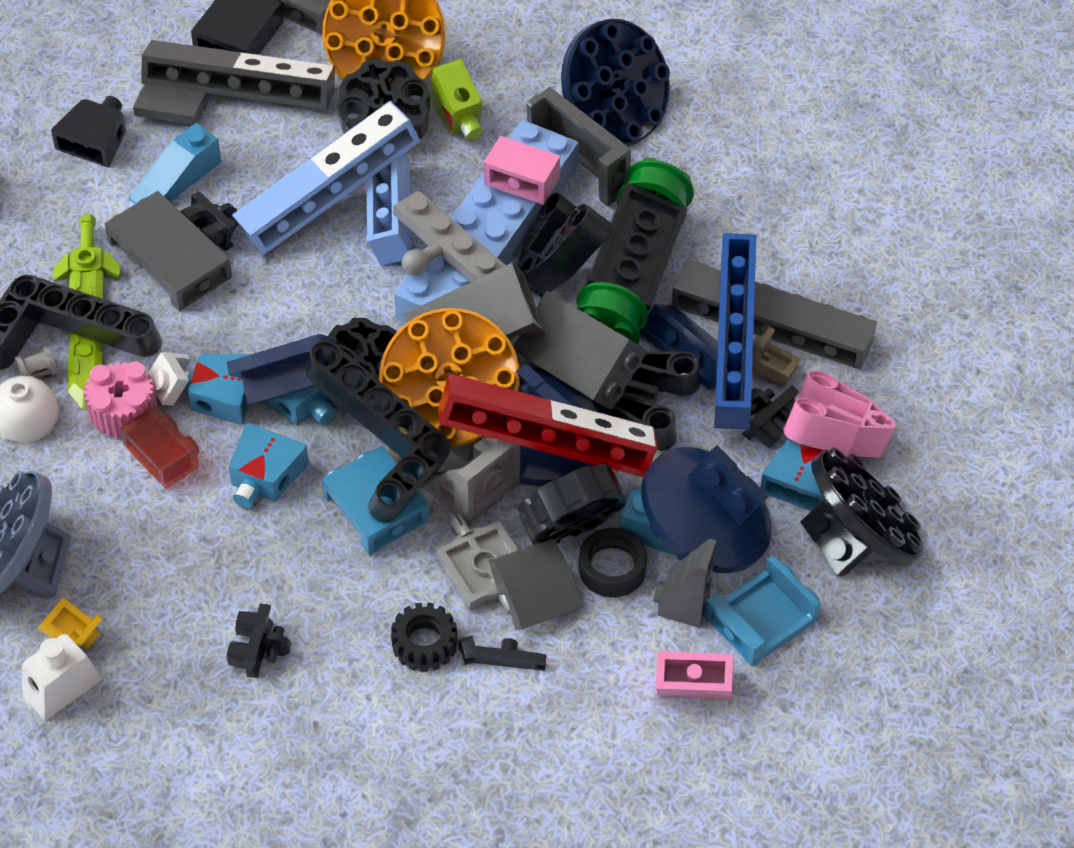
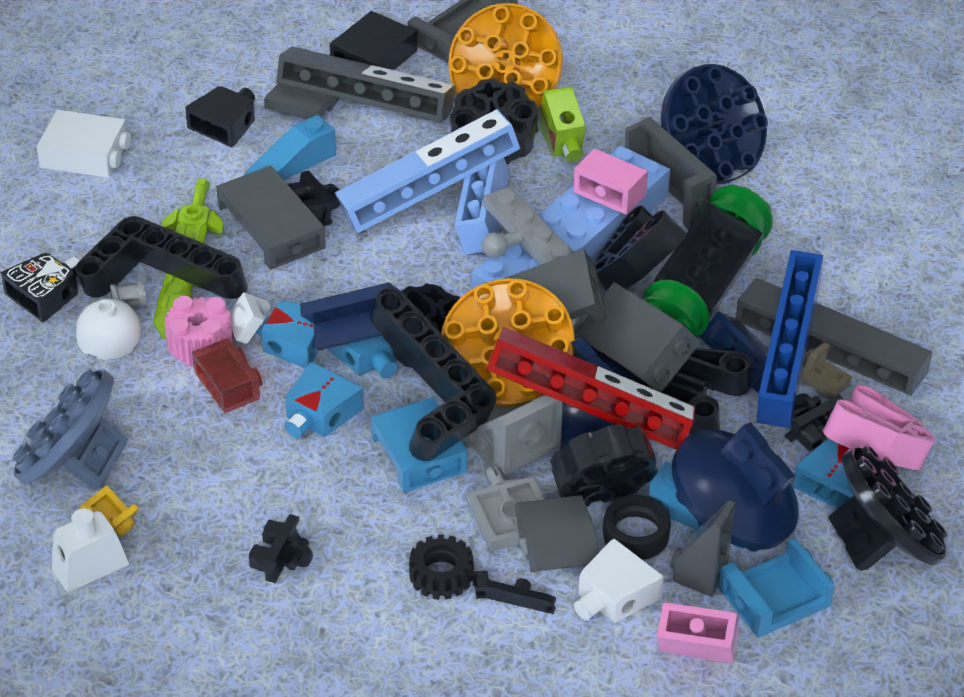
camera: 10 degrees right, 10 degrees down
(604, 631) = (617, 584): none -> white torso

